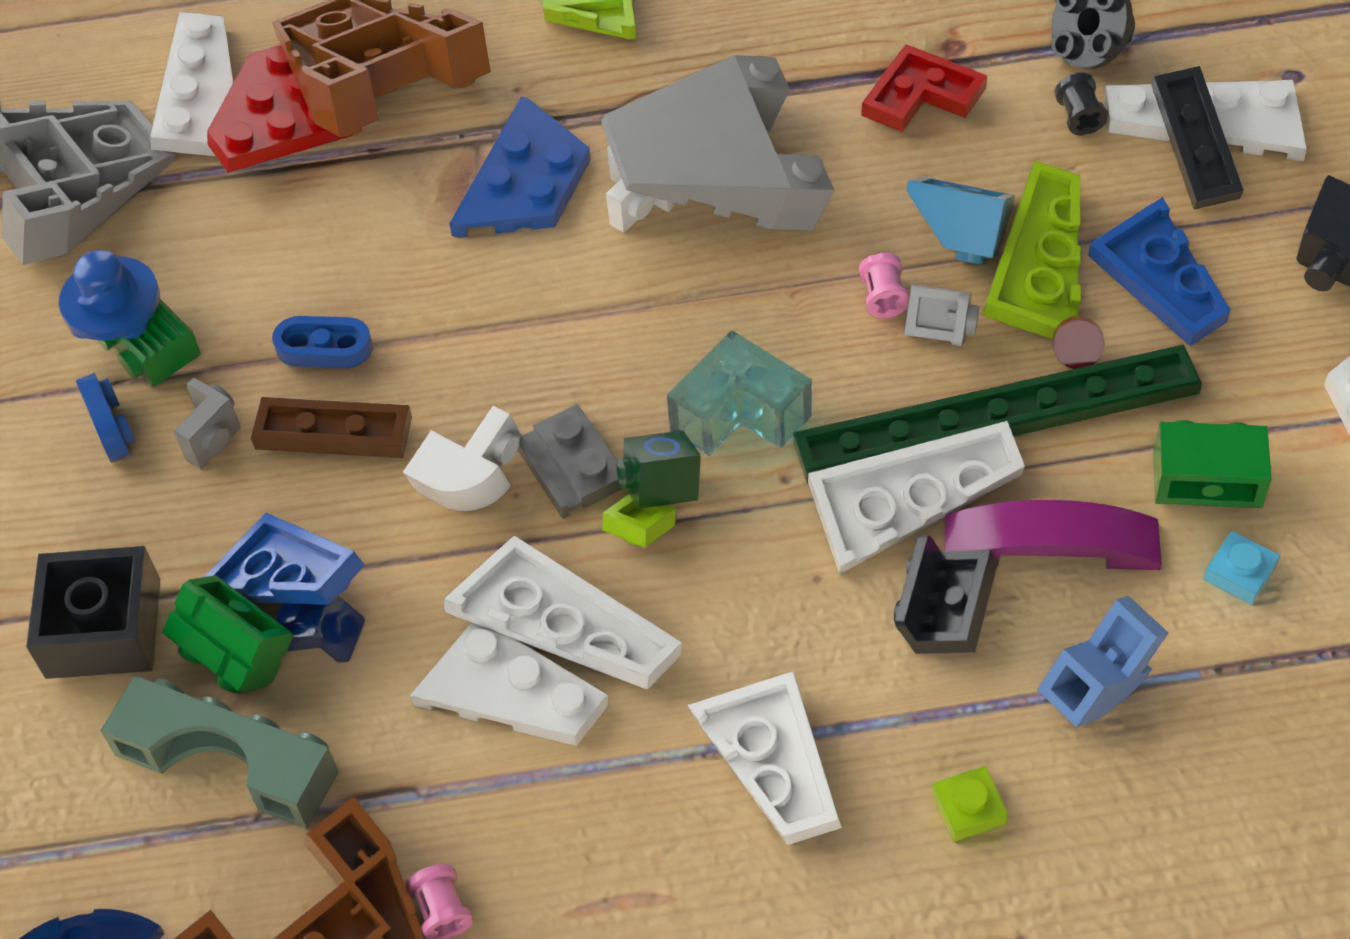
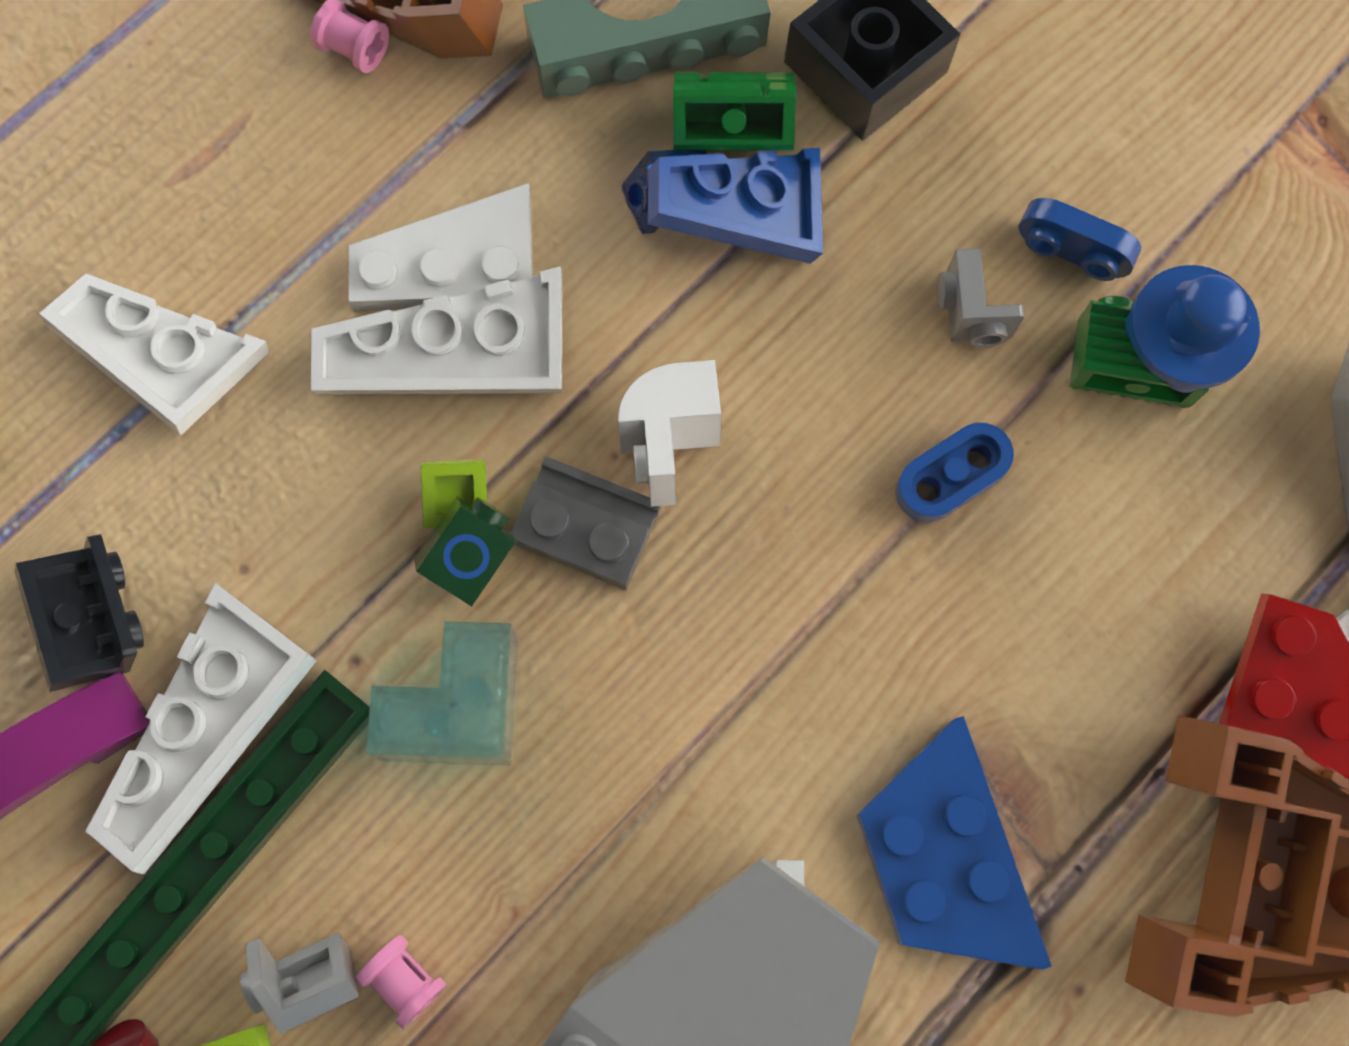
camera: 135 degrees right, 20 degrees up
(331, 427) = (849, 385): reddish brown plate -> none

